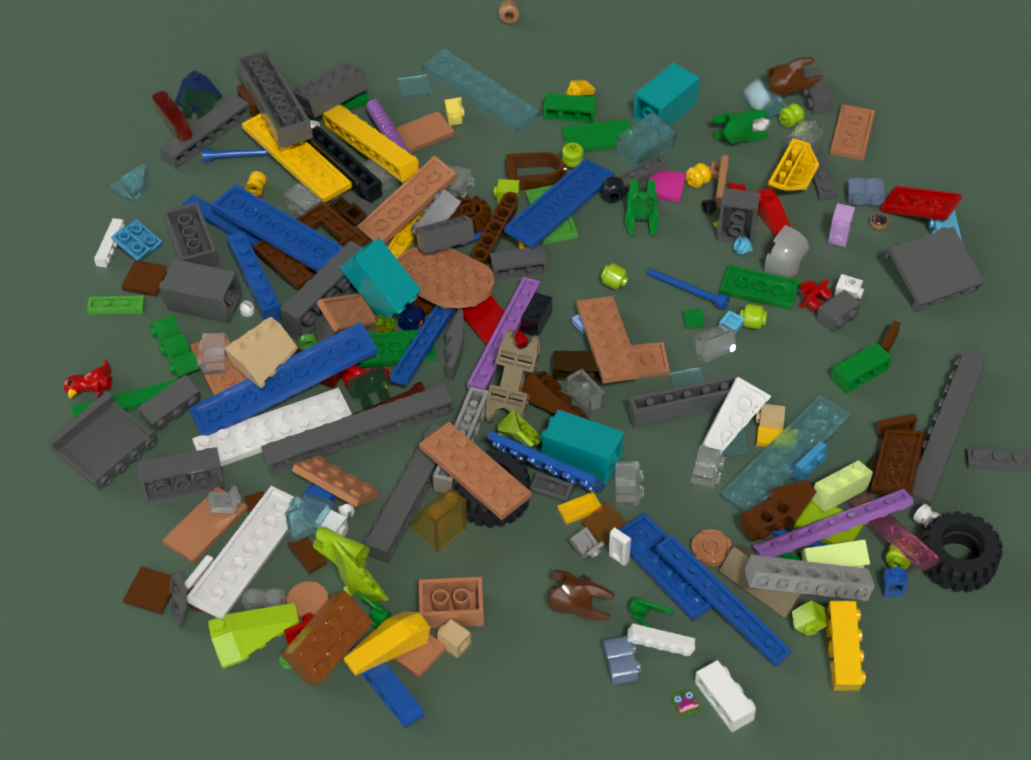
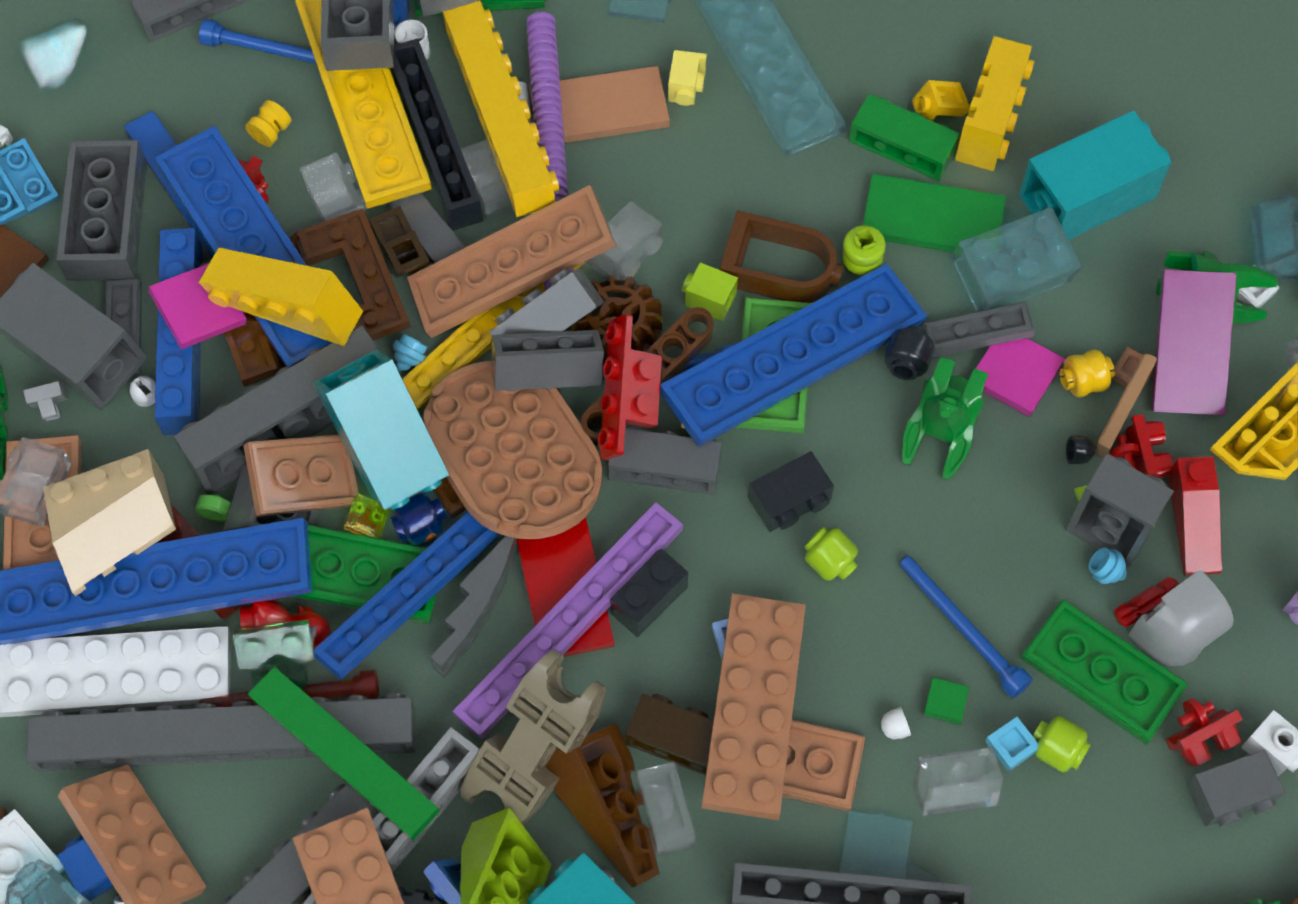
camera: 20 degrees right, 15 degrees up
(200, 322) = (47, 399): none -> light grey tile
(262, 258) = (190, 311): none -> dark pink tile
(307, 234) = (283, 293): none -> yellow wedge
(423, 410) = (344, 753): none -> green tile
(489, 232) = (630, 388): none -> red bracket
(583, 258) = (791, 492): none -> black brick
(606, 84) = (993, 104): none -> yellow wedge
(675, 333) = (895, 724): none -> white hinge
(741, 146) = (1193, 342): none -> tile
(760, 261) = (1143, 603): none -> red axle

